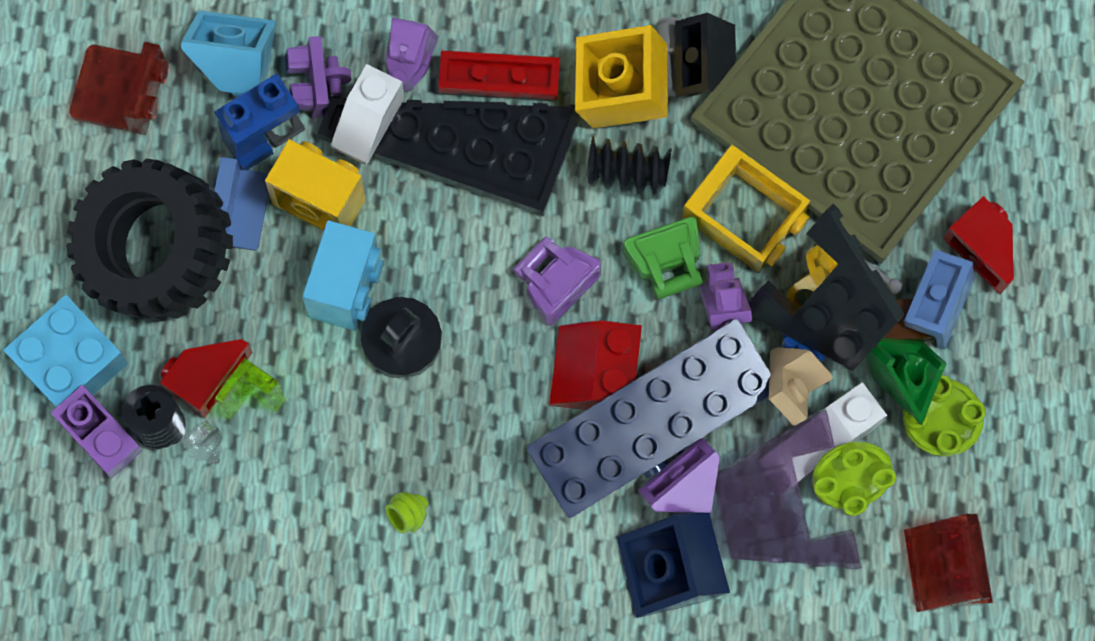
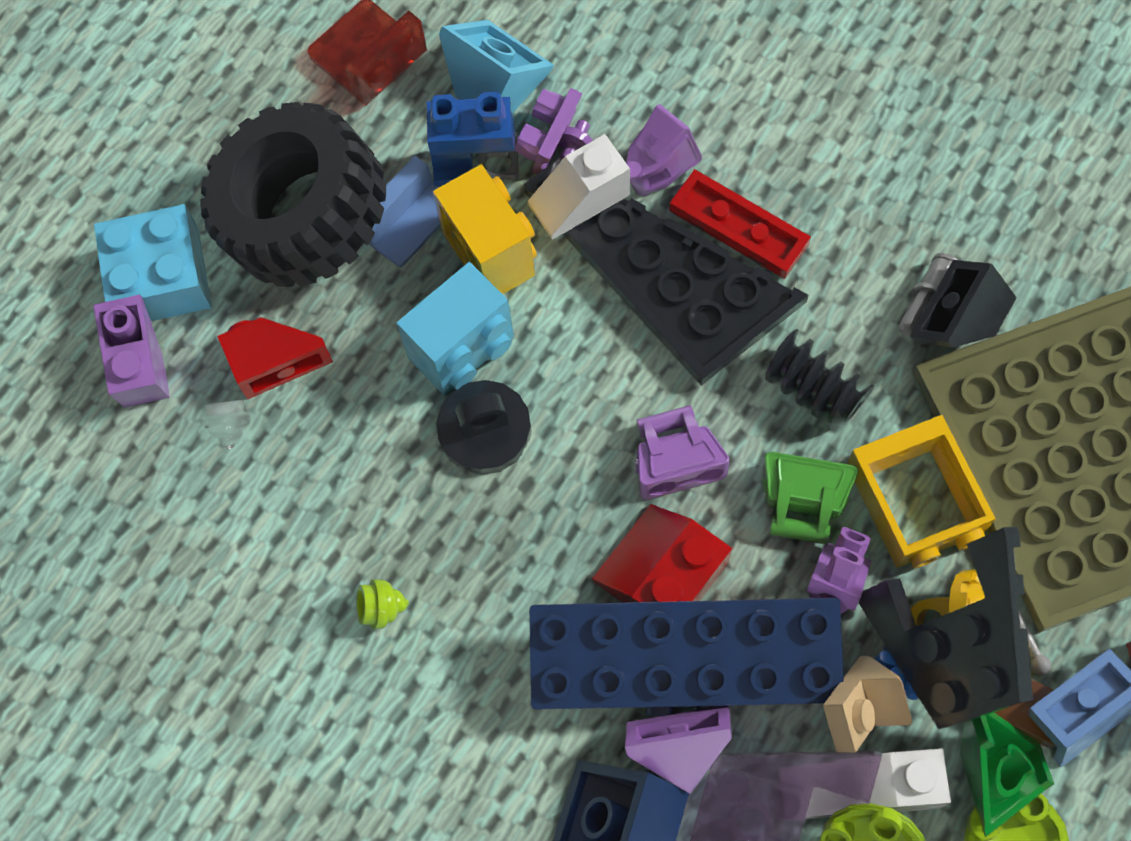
camera: 40 degrees right, 5 degrees down
(142, 406) = (189, 365): black piece -> none
(248, 381) = (288, 384): clear neon green panel -> none
(621, 77) = (863, 285): yellow brick -> none

